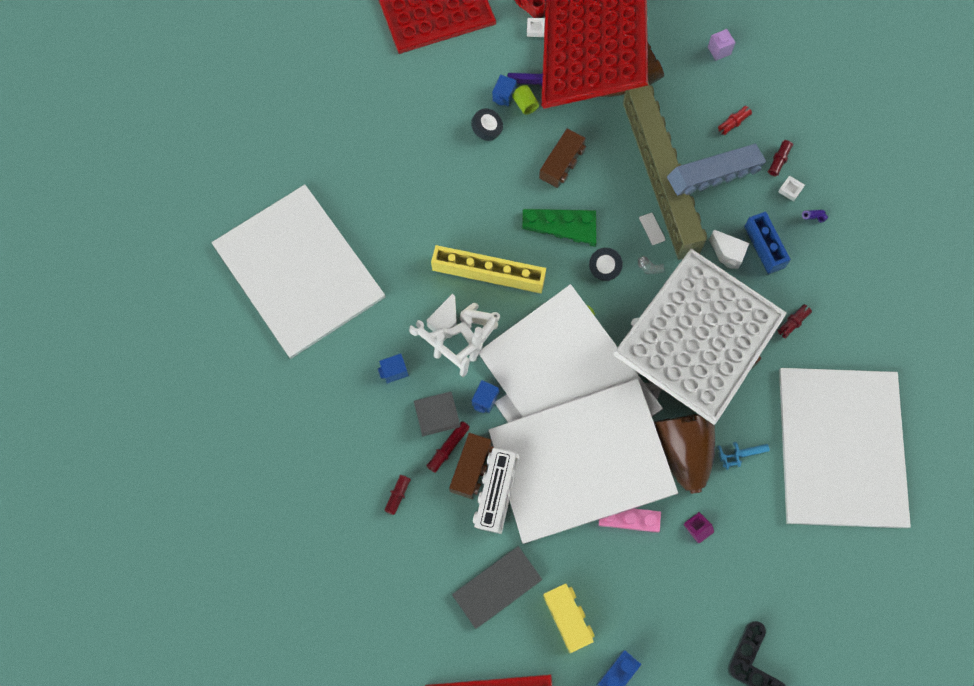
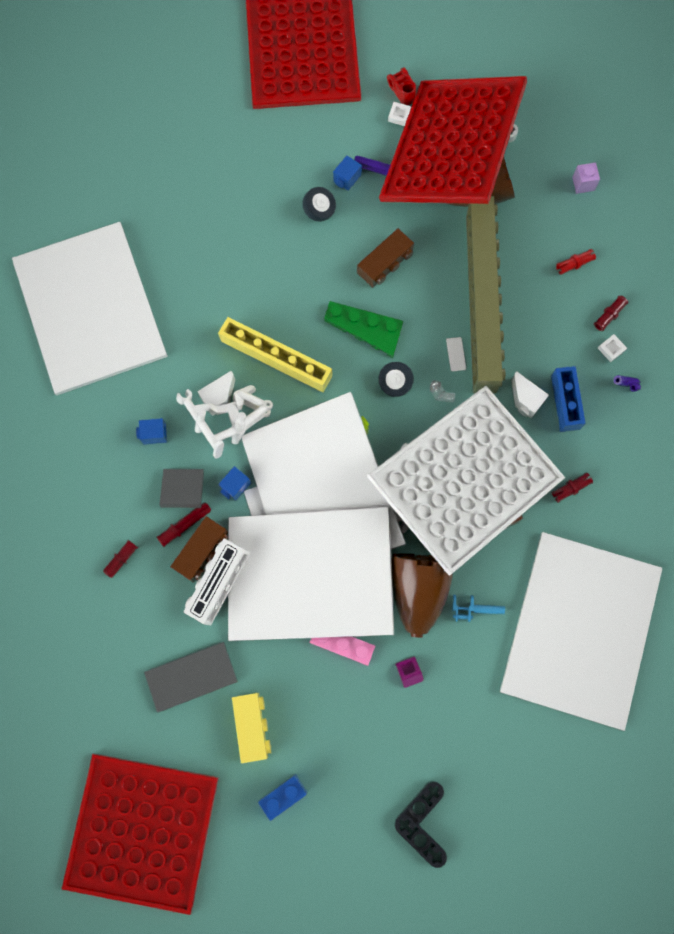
camera: 15 degrees right, 5 degrees up
(525, 99) = (366, 187): lime piece -> none
(716, 169) = (536, 310): sand blue brick -> none

